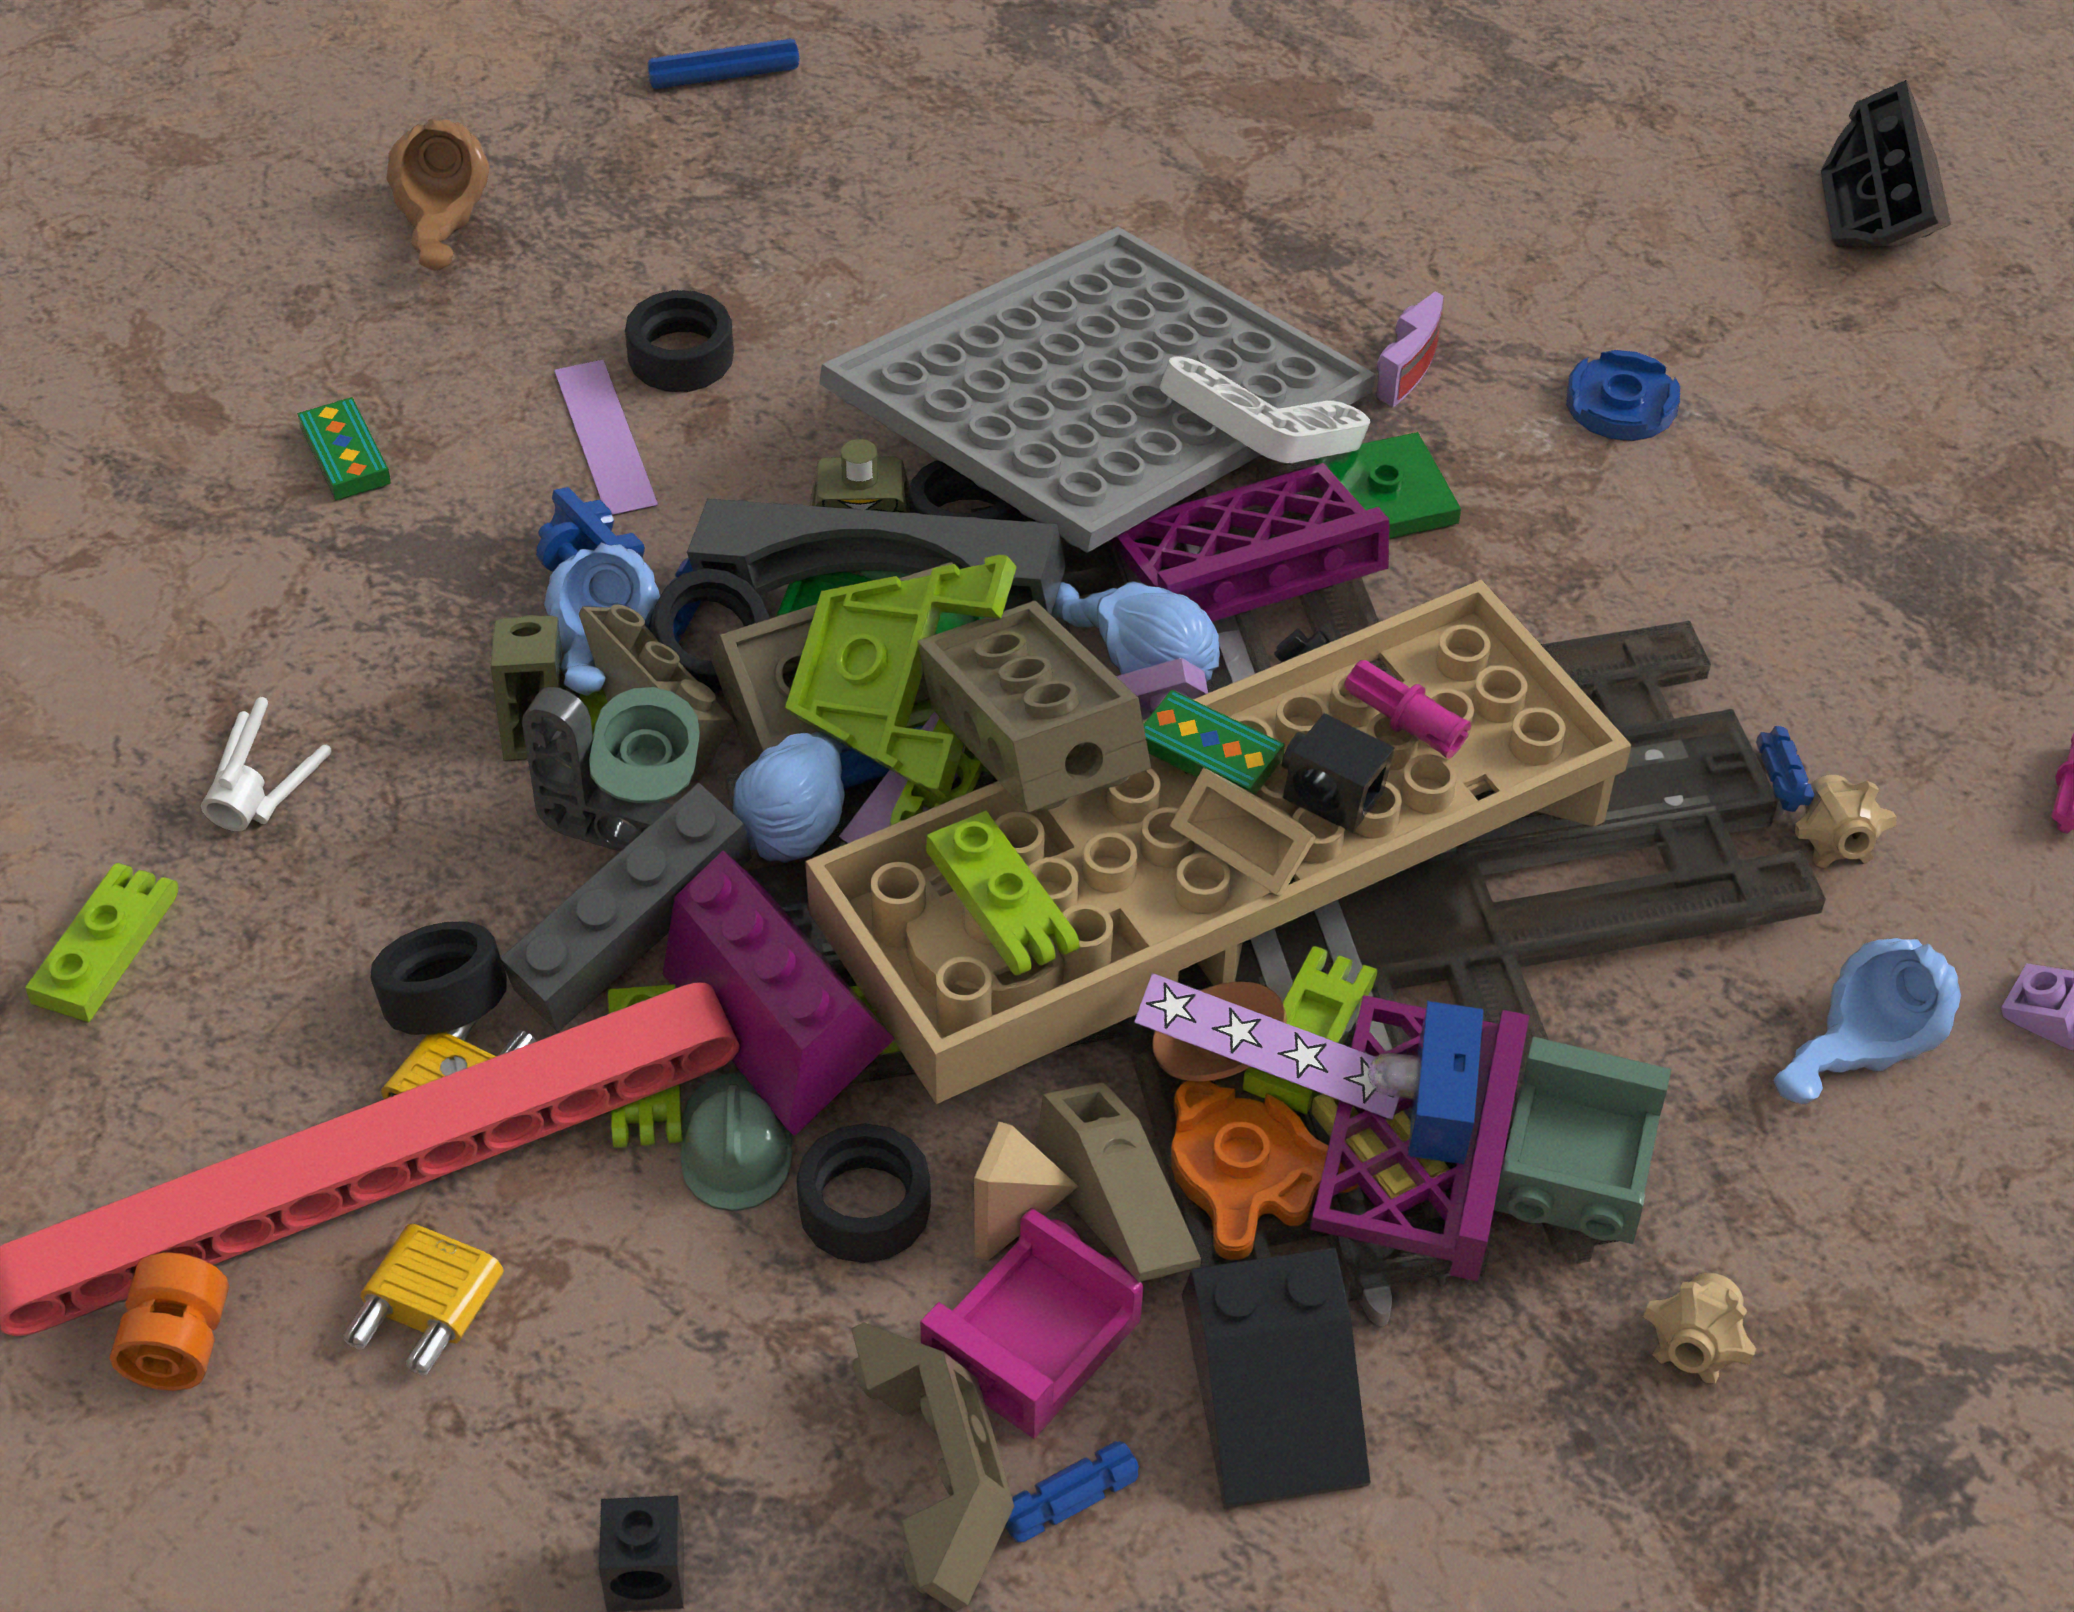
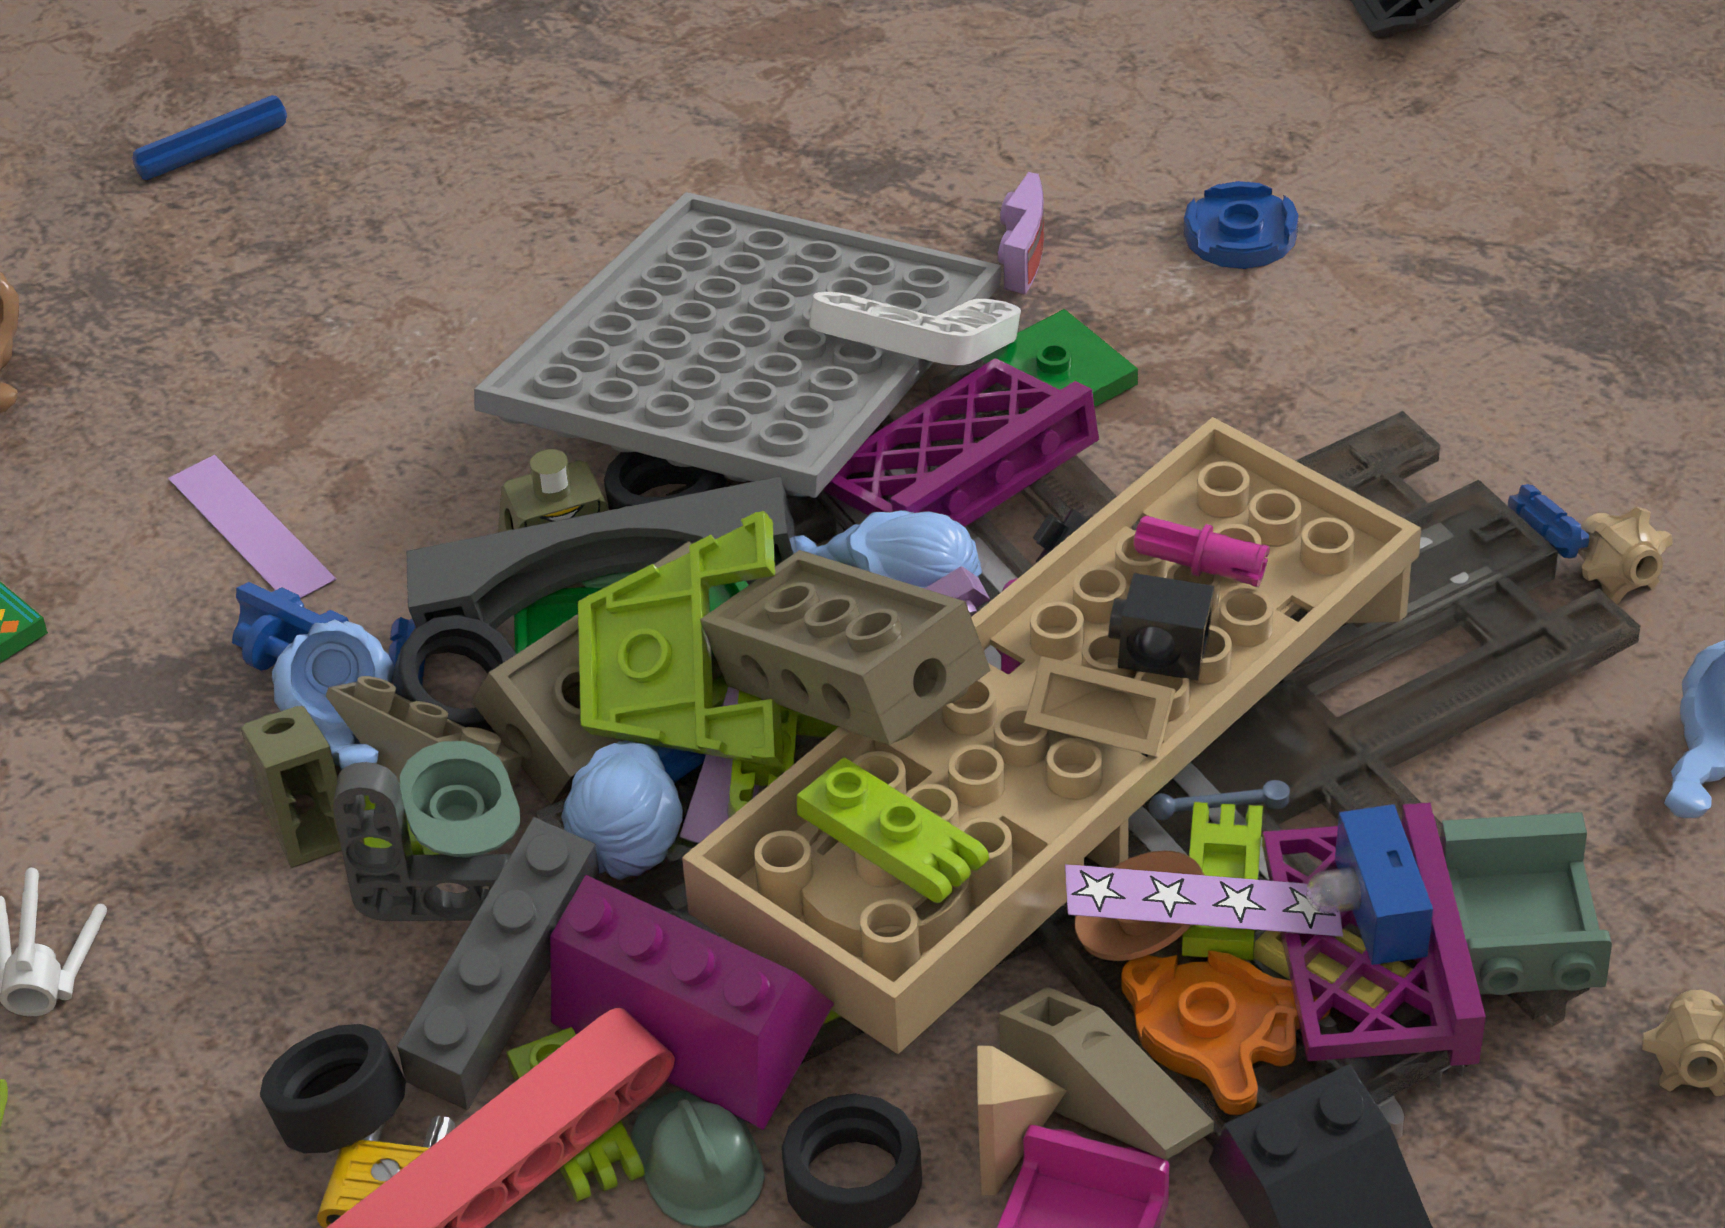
camera: 15 degrees left, 5 degrees down
(684, 368) = (296, 442): black tyre -> none
(1201, 738) = (1021, 633): green tile -> none
(1398, 959) = (1273, 795): none -> sand blue hinge

